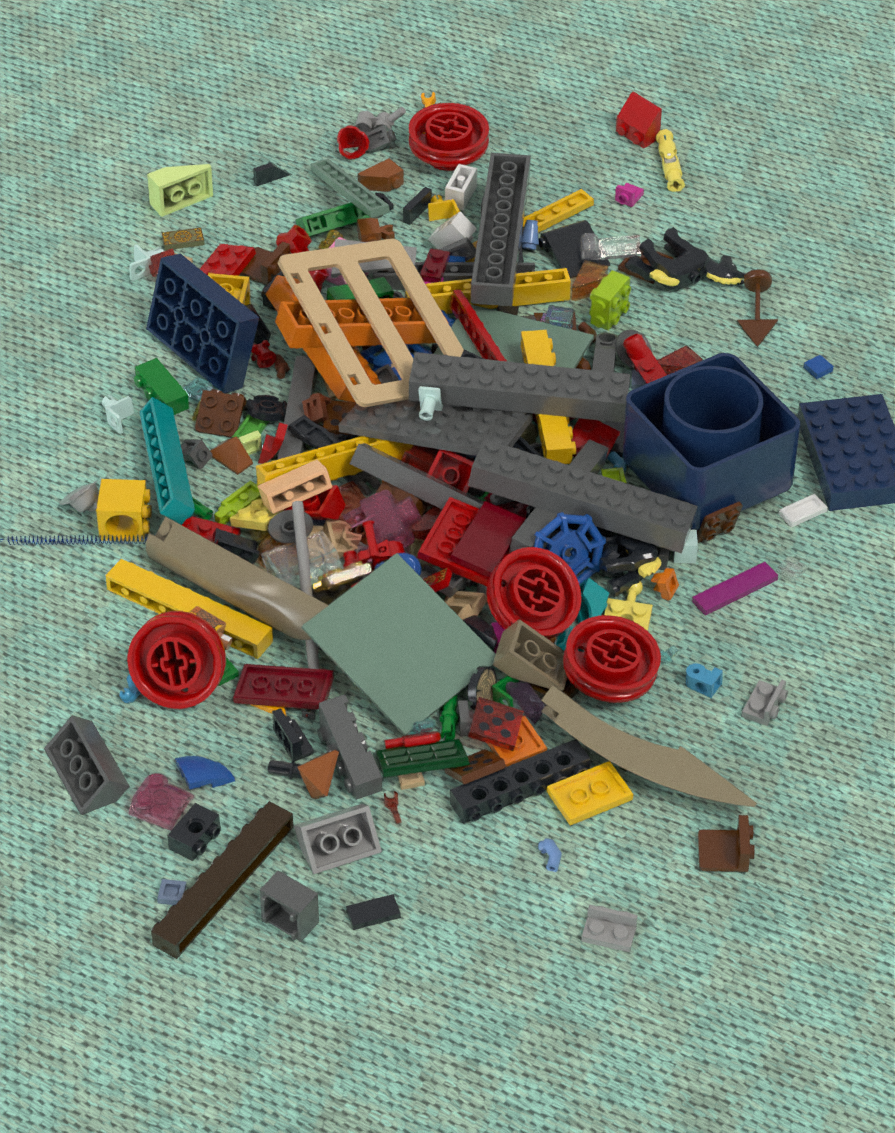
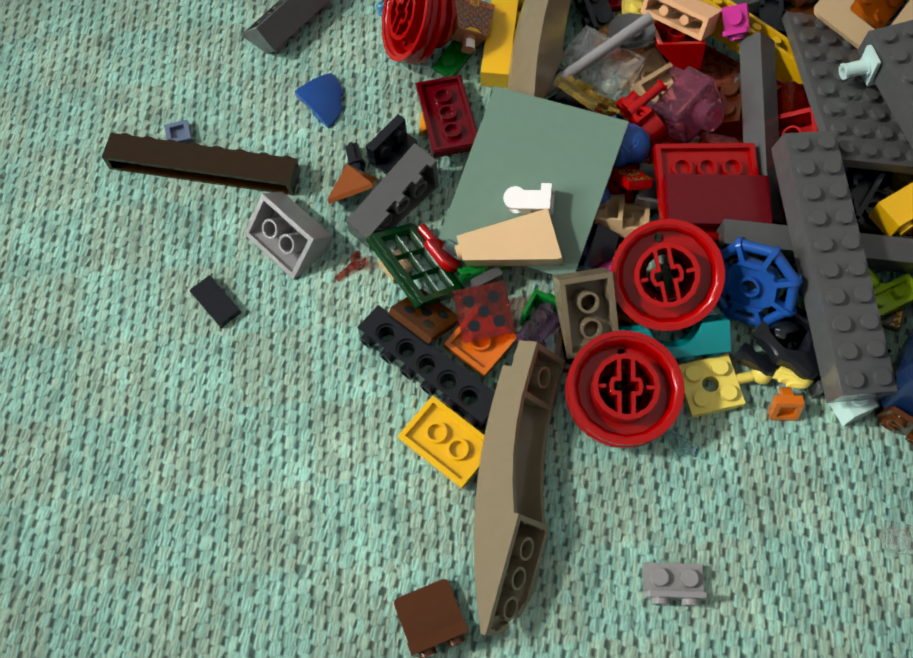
camera: 70 degrees right, 20 degrees up
(159, 801) = (274, 81): clear pink slope -> none
(194, 832) = (246, 119): black brick -> none
(289, 906) = (176, 225): dark grey container -> none
(333, 456) = (736, 21): none -> dark pink bracket
(420, 652) = (530, 201): none -> white leg
(450, 676) = (514, 242): none -> tan slope
(481, 684) = (524, 278): tile -> none
(549, 846) = (352, 437): medium blue arm -> none
(610, 928) = (269, 534): light grey bracket -> none
(703, 680) = (665, 500): dark azure leg -> none
(735, 588) = (830, 484): magenta tile -> none

